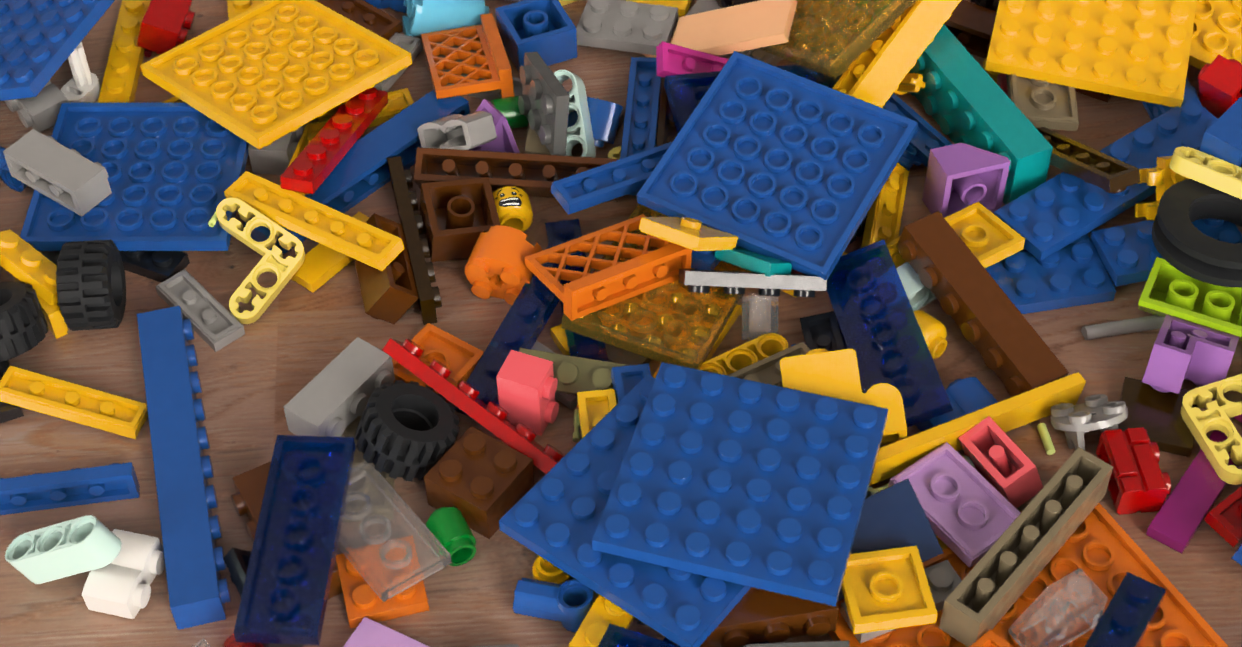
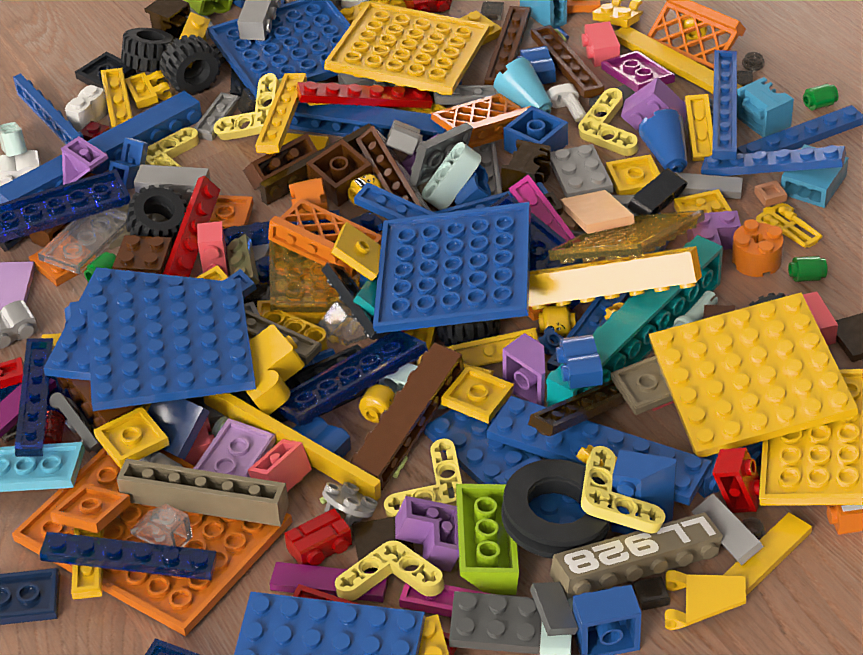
camera: 65 degrees right, 5 degrees down
(54, 438) = (87, 107): none -> white brick
(78, 367) = (146, 89): none -> yellow plate
(108, 451) = (93, 129): none -> dark red plate
(215, 264) = (247, 102): none -> clear smoke tile
(215, 473) = (79, 159): none -> medium lavender slope
(243, 428) = (133, 155): none -> blue brick
(244, 397) = (181, 141): none -> light yellow beam
(599, 64) = (528, 159): none -> dark brown piece
(1024, 117) = (580, 362): none -> blue brick
(1106, 333) = (437, 492): none -> light yellow beam

